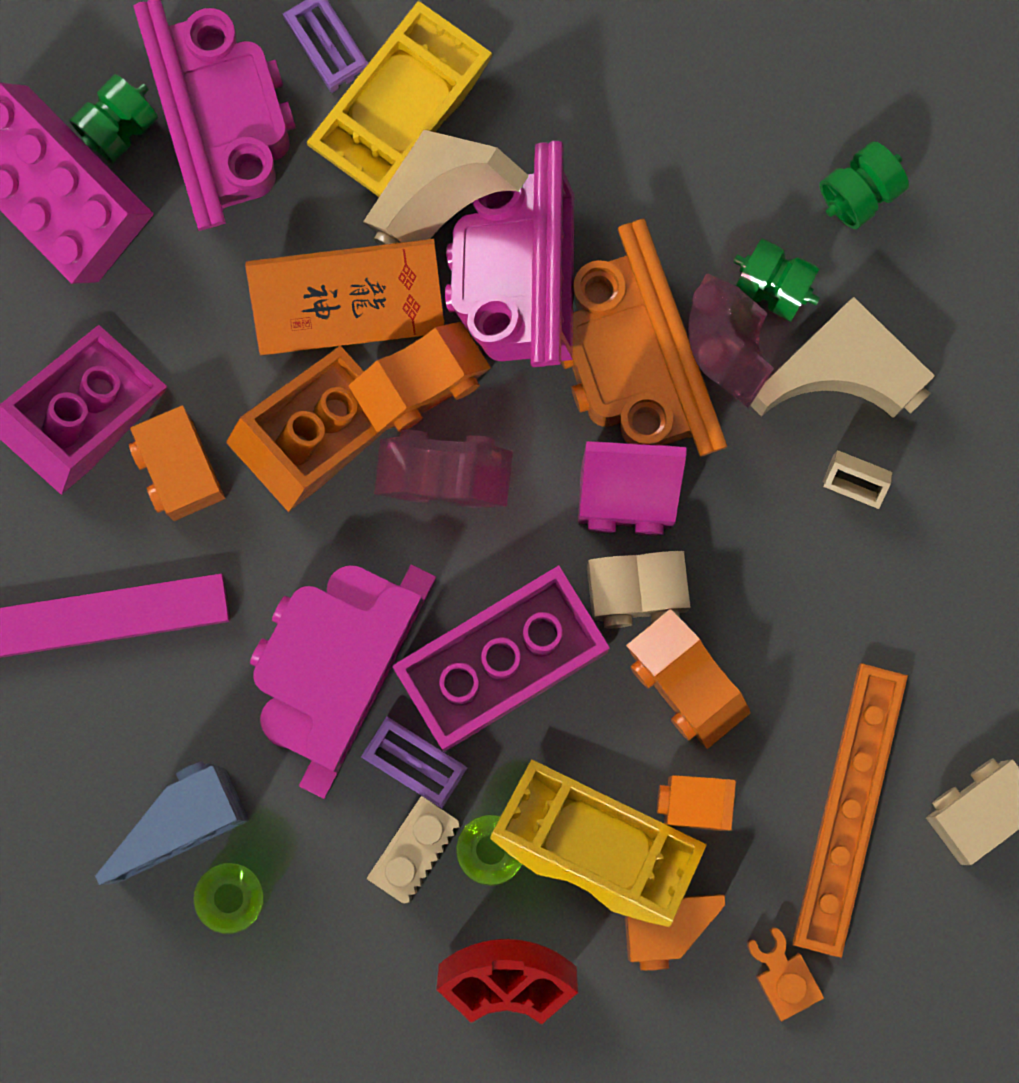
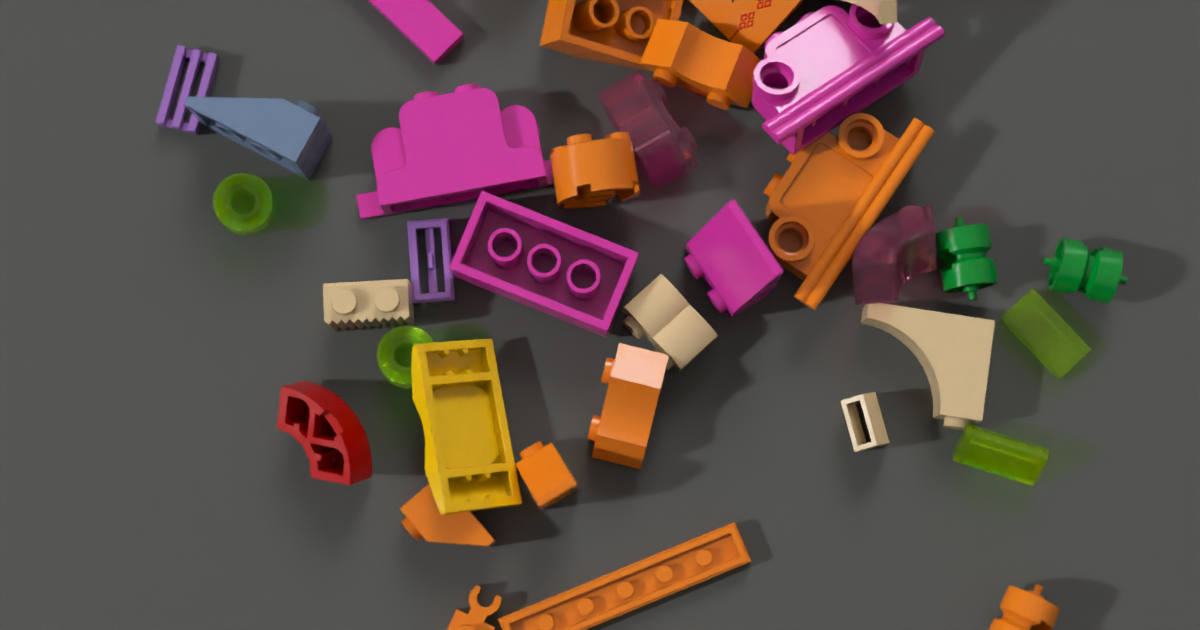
camera: 55 degrees right, 0 degrees up
(49, 841) = (173, 82): none -> medium lavender tile
(448, 548) = (594, 170): none -> orange brick
(892, 262) = (1045, 333): none -> clear neon green tile
(972, 383) = (1000, 454): none -> clear neon green tile

